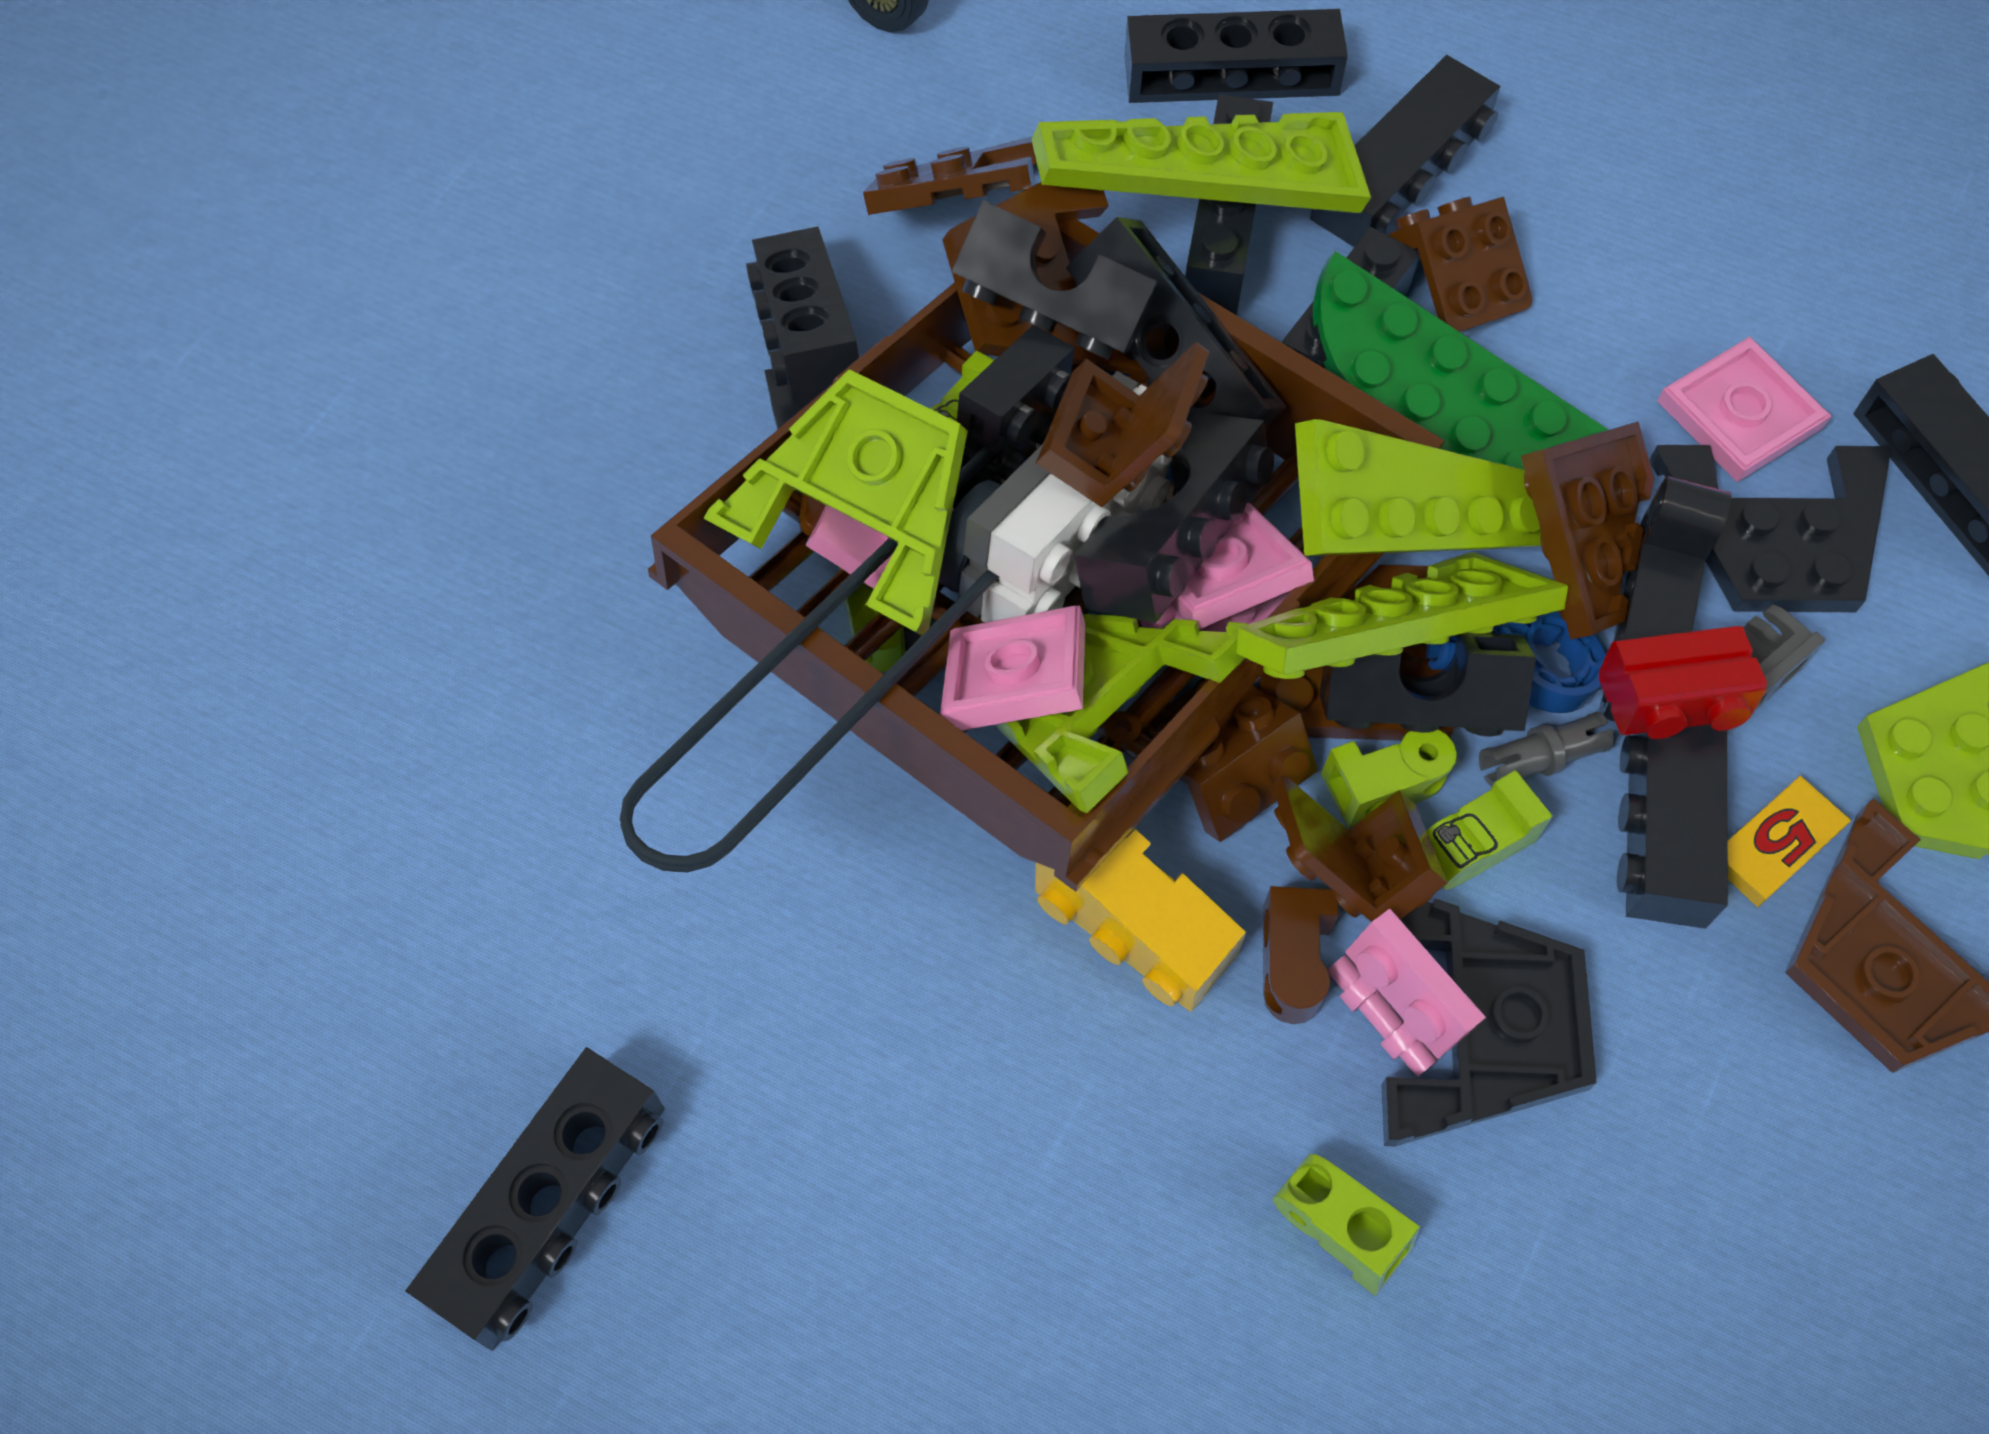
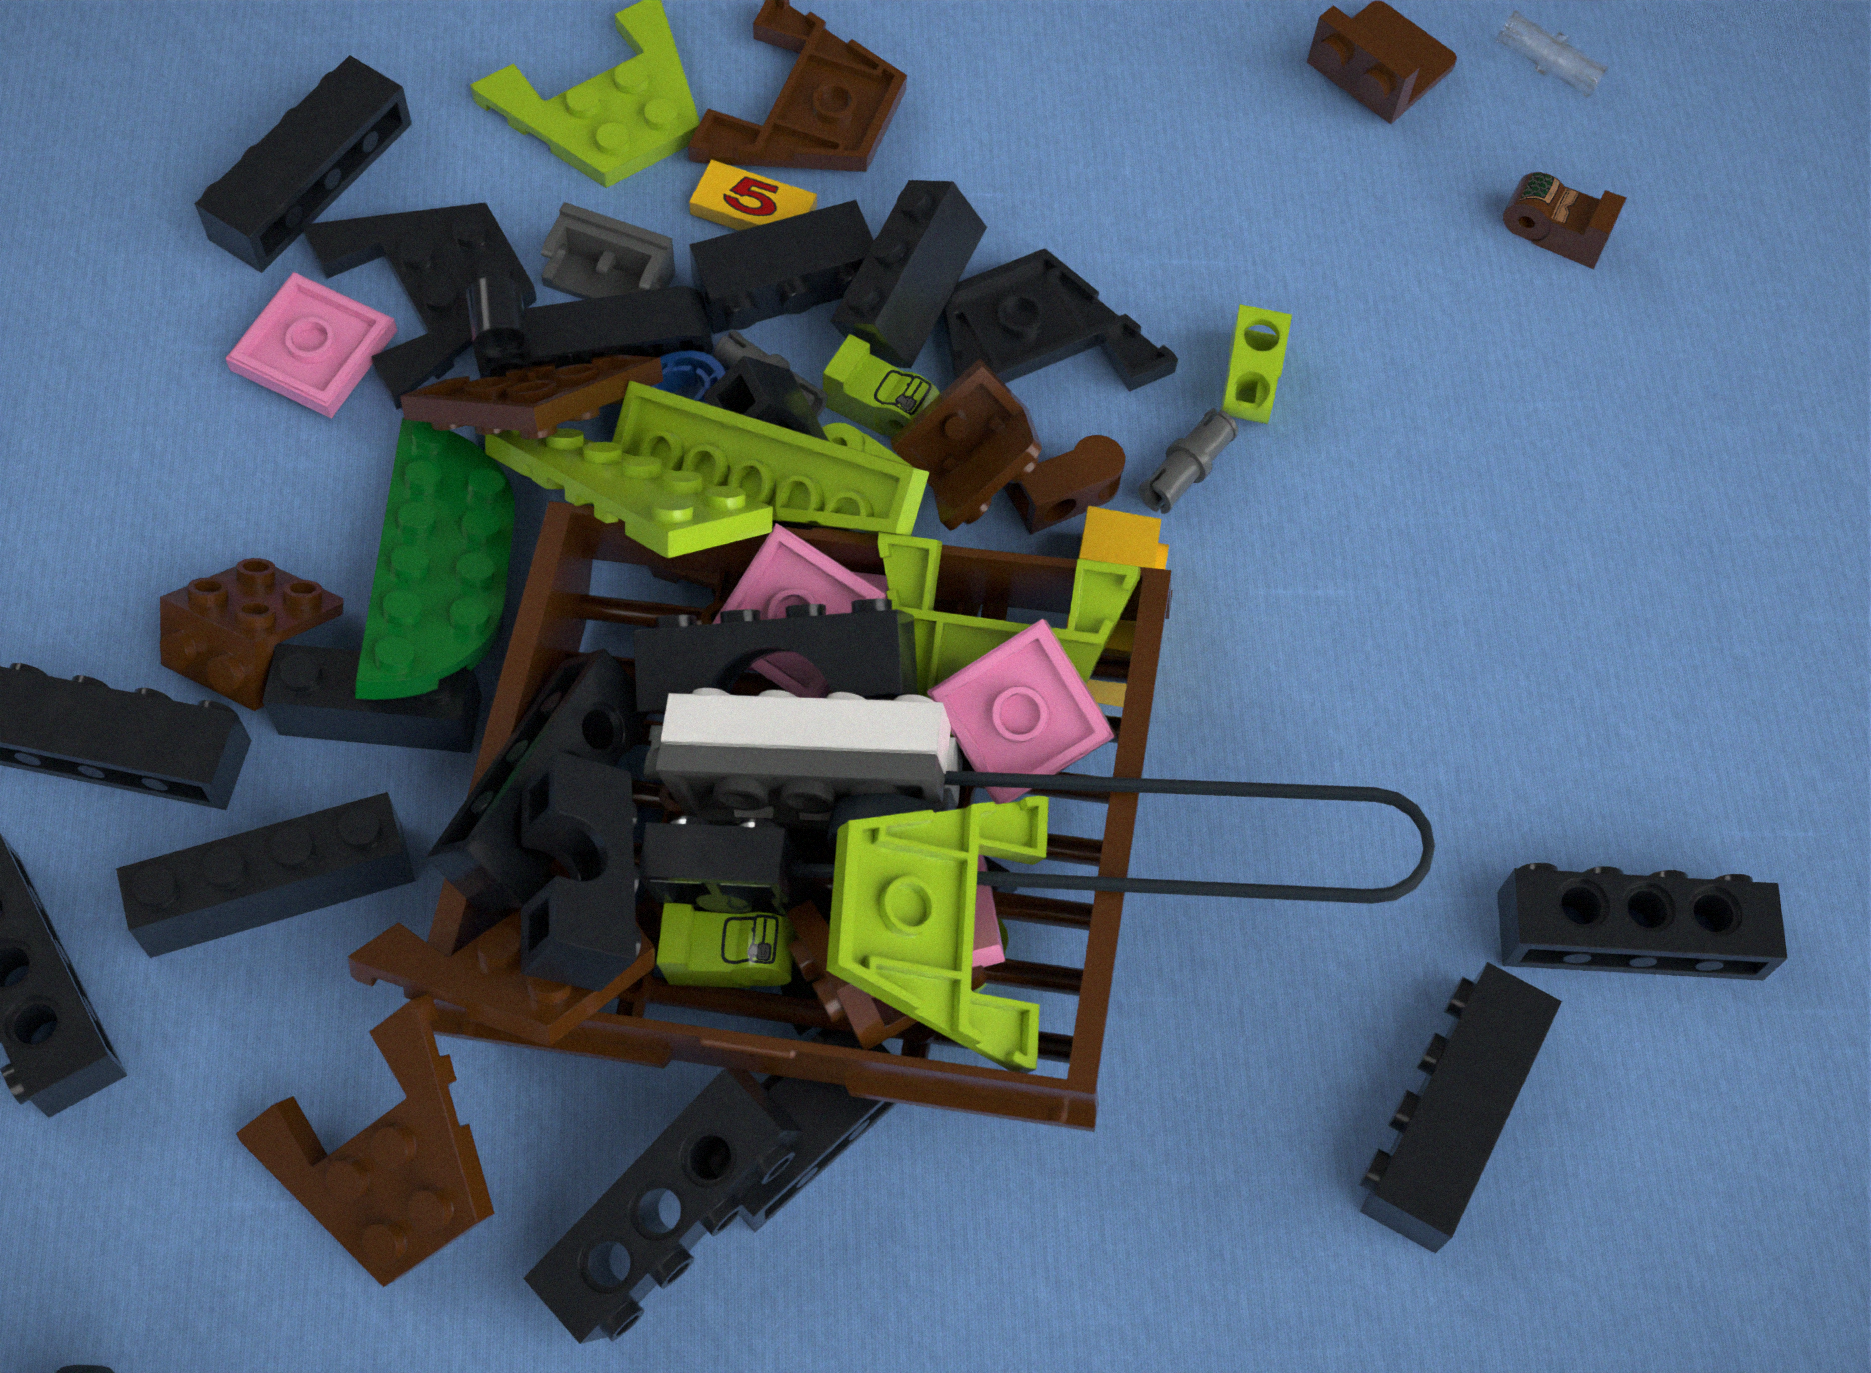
camera: 125 degrees left, 0 degrees up
(503, 927) = (1460, 1107): none -> black brick
(1111, 435) = (762, 673): reddish brown bracket -> none
(1264, 1086) = (1188, 461): none -> dark grey pin
(1287, 163) = (268, 838): lime wing -> none
(1414, 984) = (1067, 381): bright pink plate -> none
(1610, 912) = (910, 271): none -> black brick
(1682, 681) = (682, 271): red brick -> none

